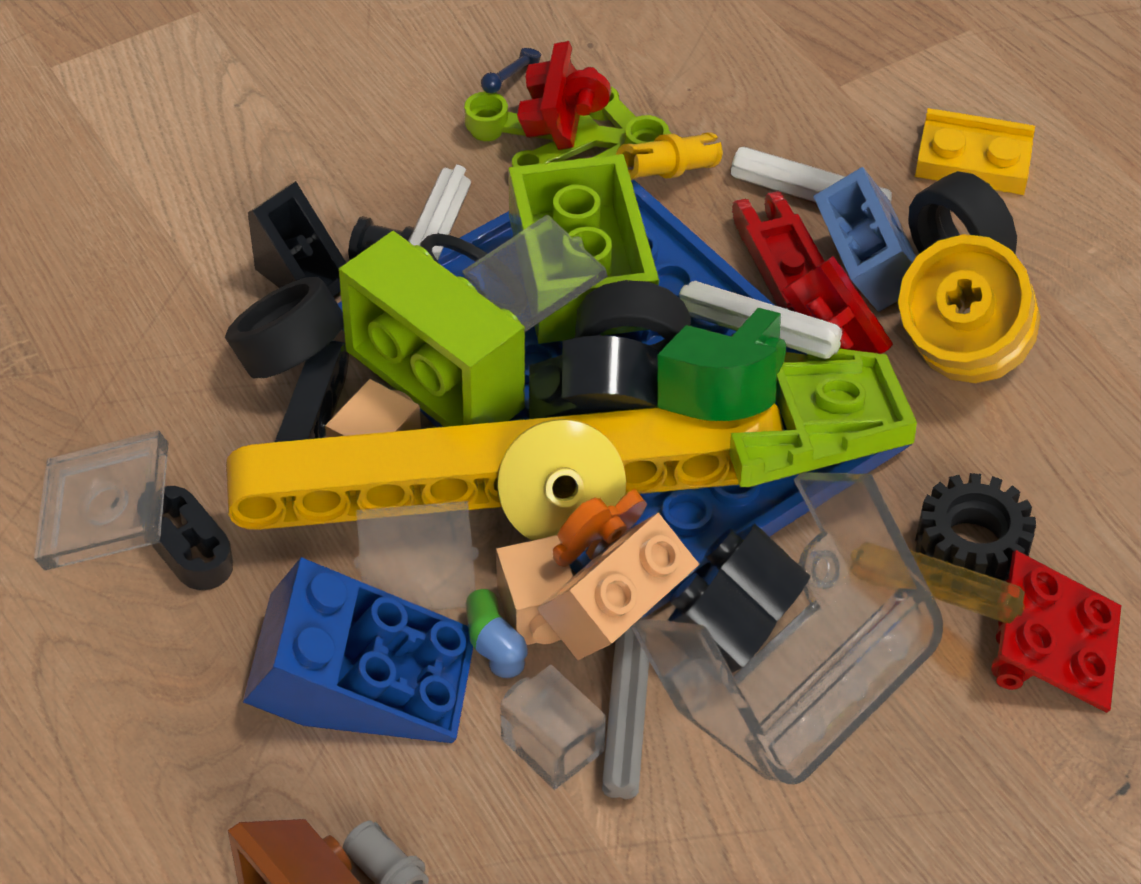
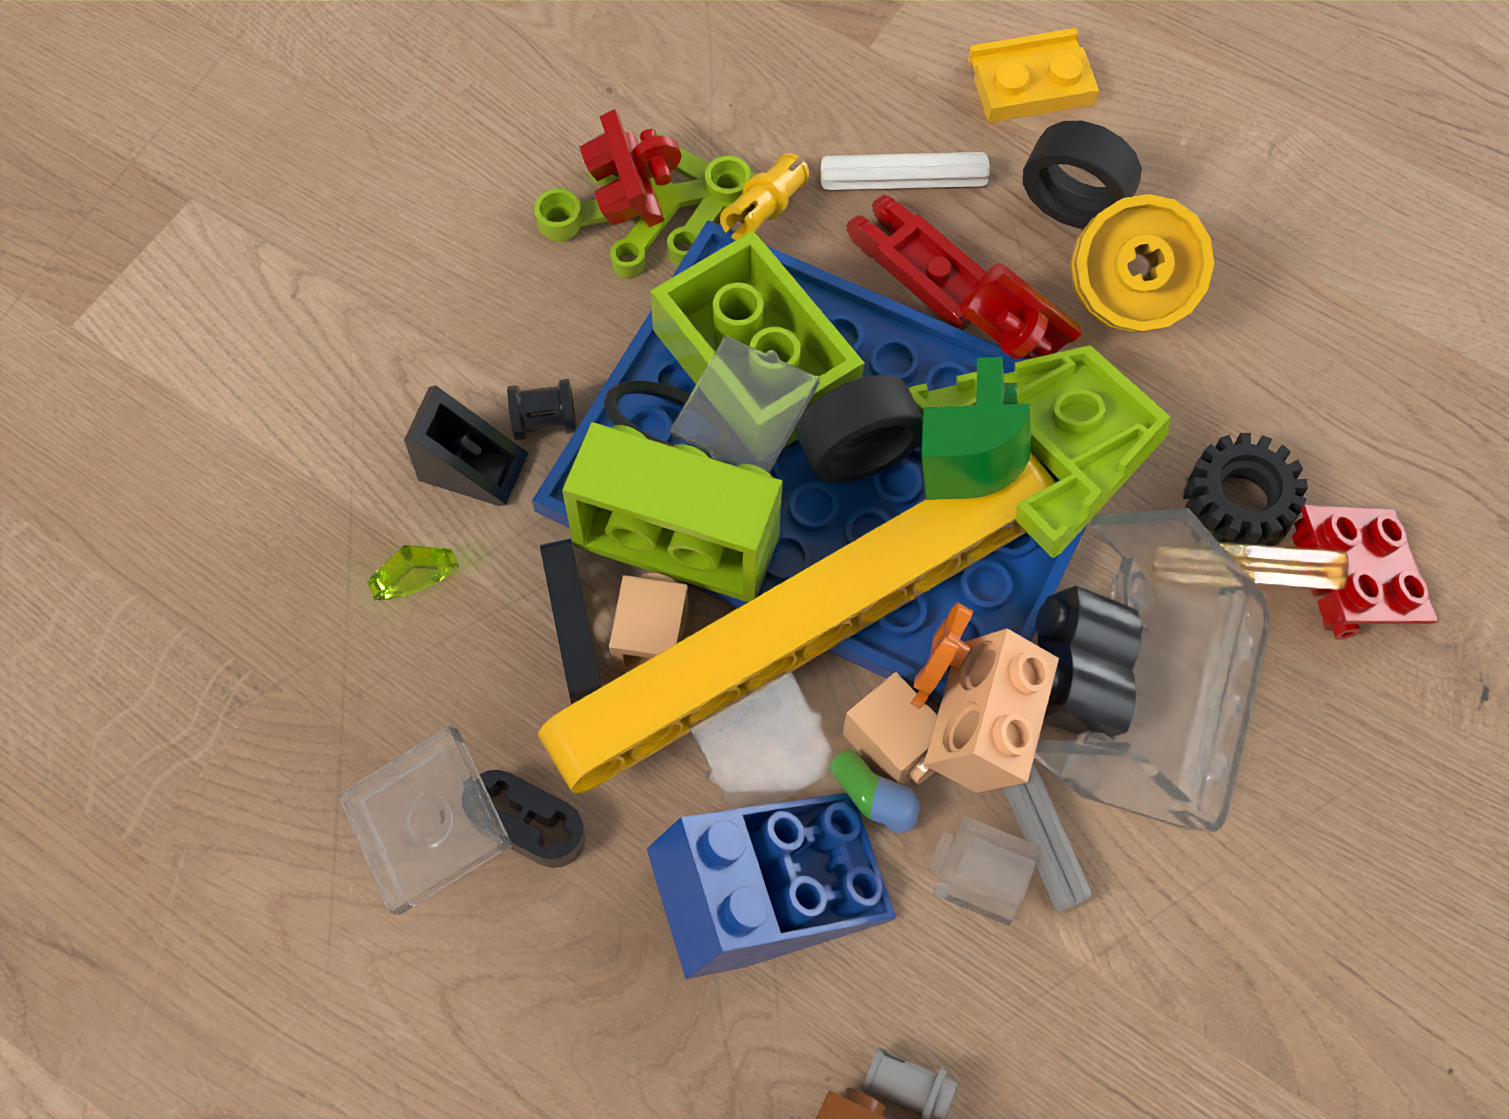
camera: 25 degrees left, 15 degrees up
(200, 323) = (411, 571): none -> clear neon green tile
(285, 327) = (527, 564): black tyre -> none
(442, 206) = (580, 354): white axle -> none
(492, 82) = (559, 129): dark blue hinge -> none
(544, 455) = (860, 607): light yellow dish -> none
(594, 377) = (853, 495): black brick -> none
(732, 310) = (957, 354): white axle -> none
(867, 236) = (1002, 218): medium blue brick -> none

